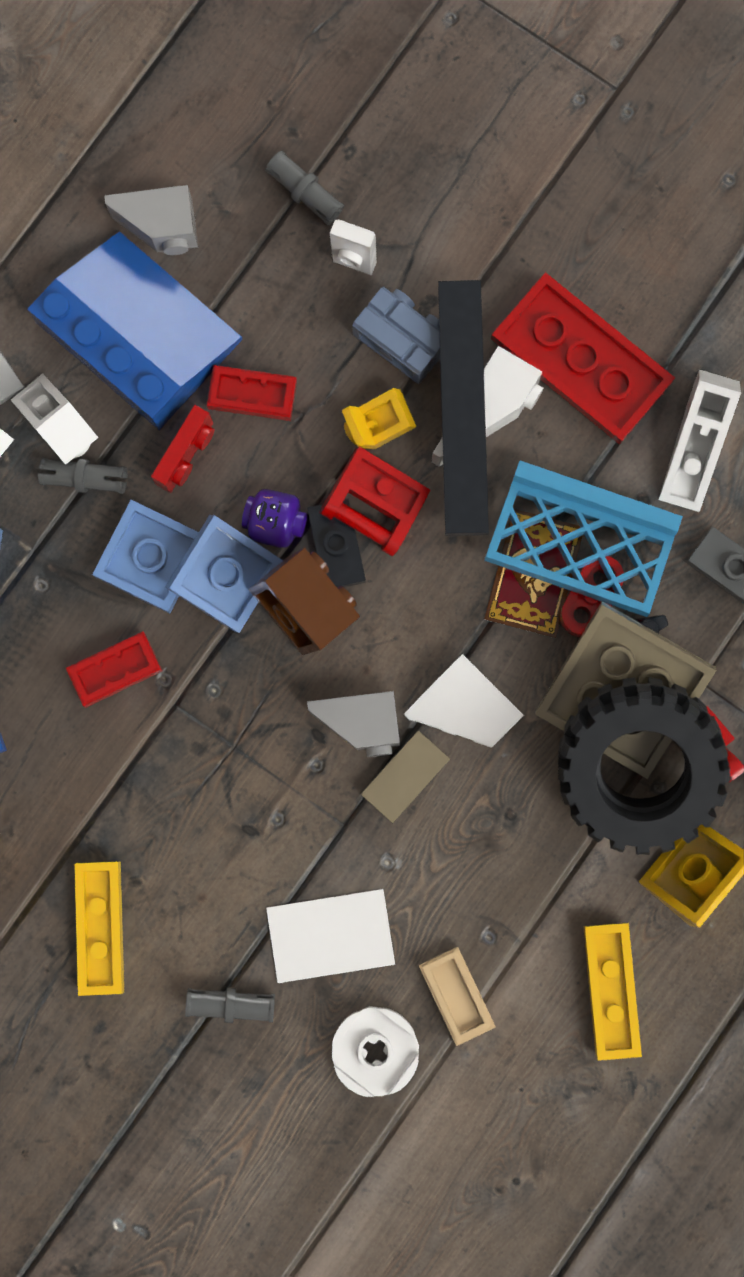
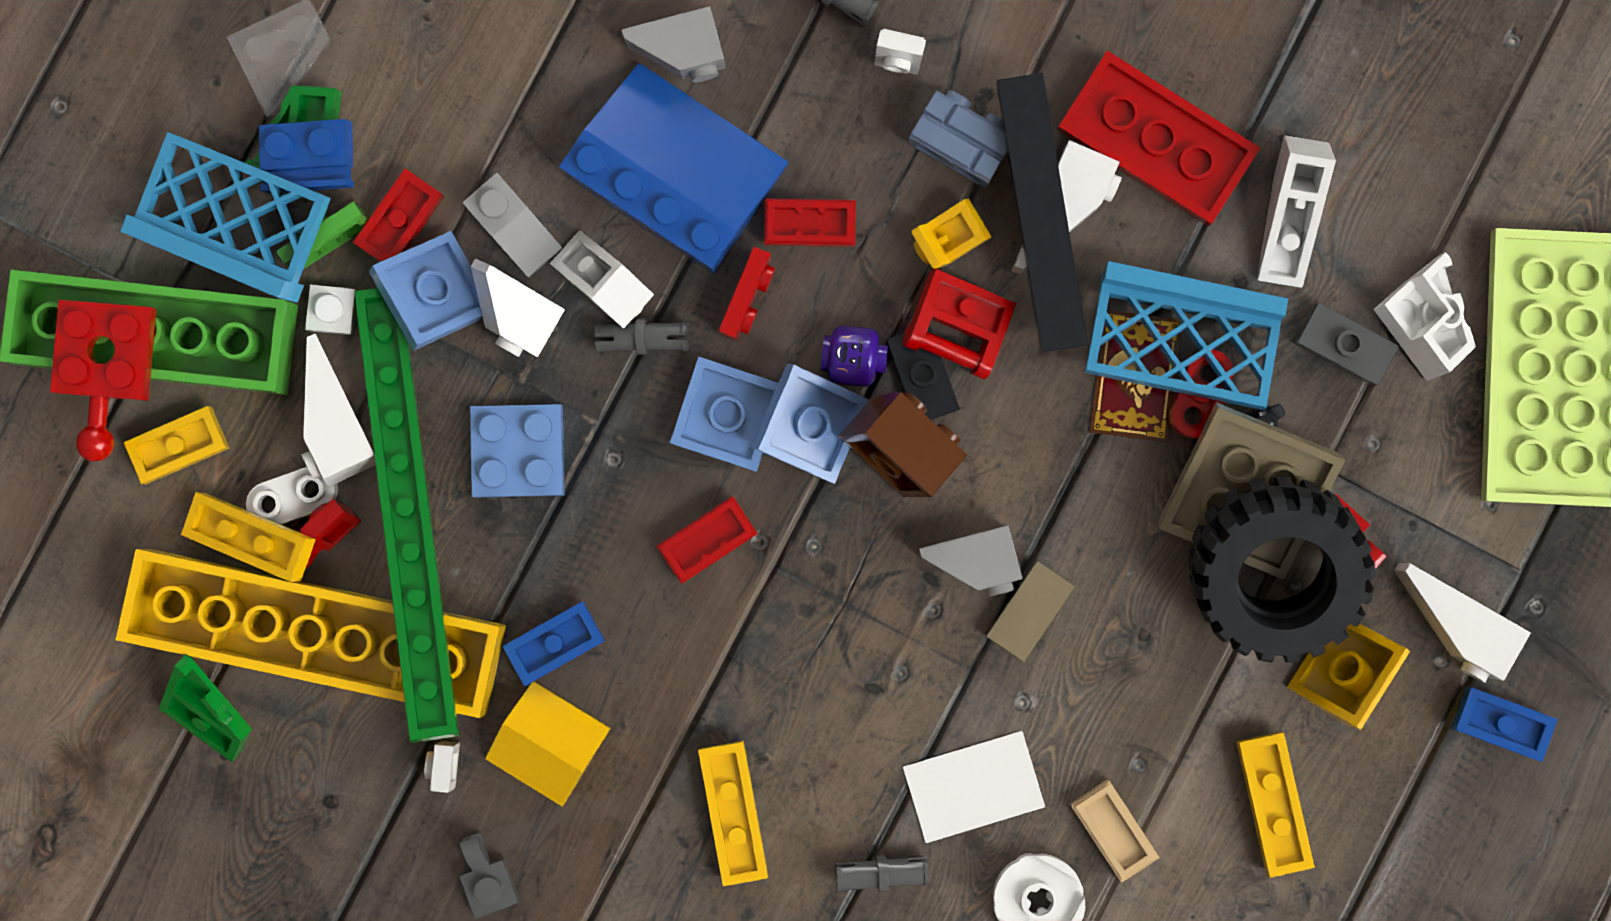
camera: 15 degrees left, 5 degrees up
(465, 705) = (1084, 528): white slope -> none

